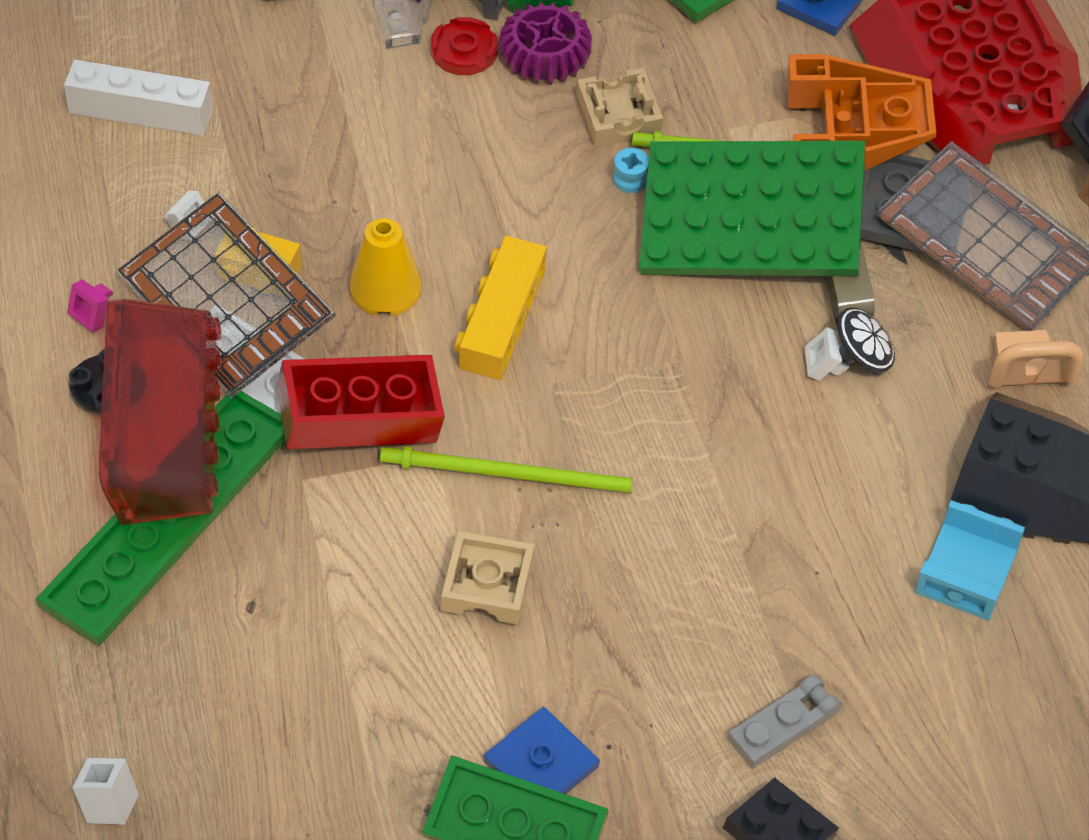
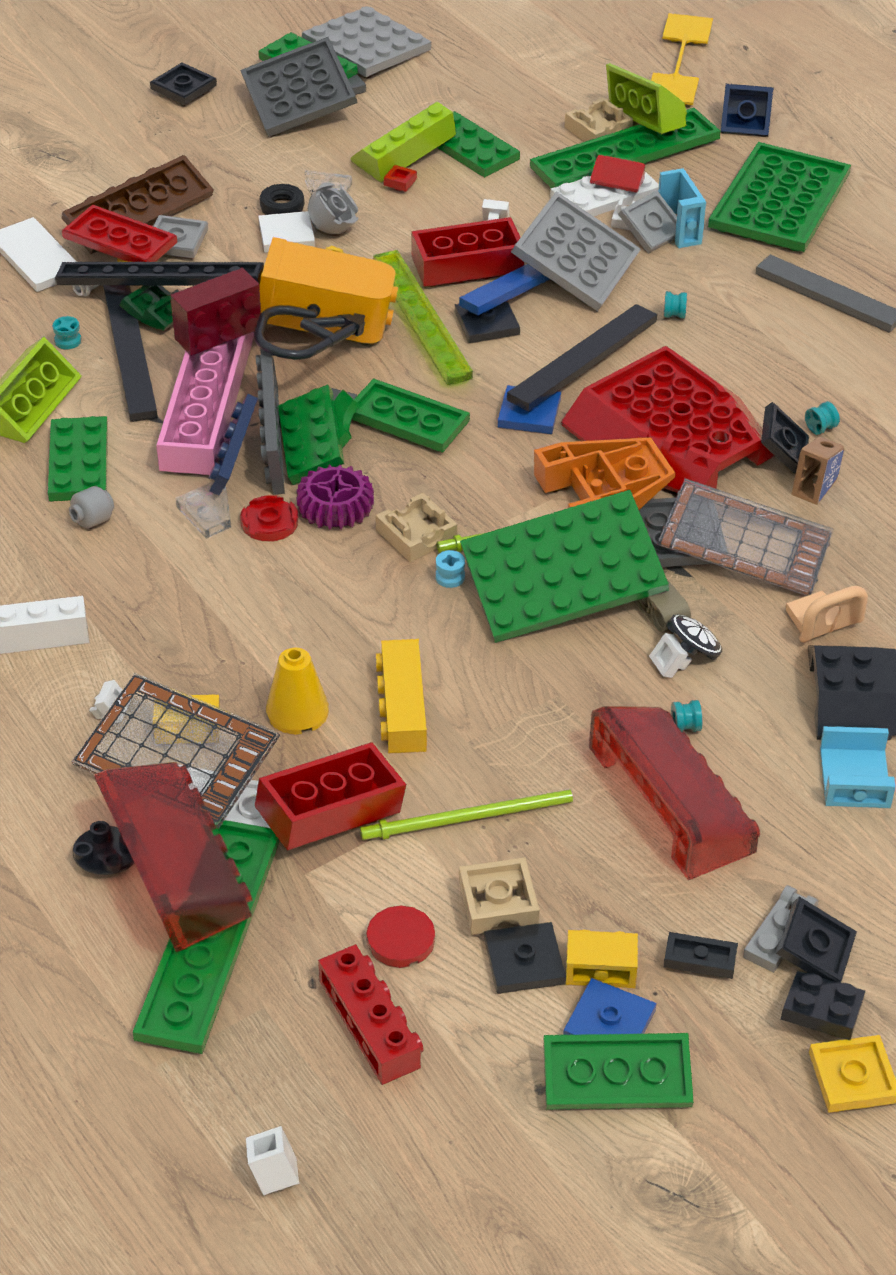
camera: 20 degrees left, 10 degrees down
(89, 304) = (61, 794): dark pink tile -> none
(287, 665) = (370, 1014): none -> red brick
(366, 586) = (400, 936): none -> red tile
(485, 656) = (524, 957): none -> black plate
(565, 687) = (602, 956): none -> yellow brick
(676, 721) = (700, 955): none -> black plate
(747, 515) = (678, 785): none -> clear red windscreen
(805, 434) = (687, 715): none -> teal wheel
(811, 752) = (816, 941): none -> black plate

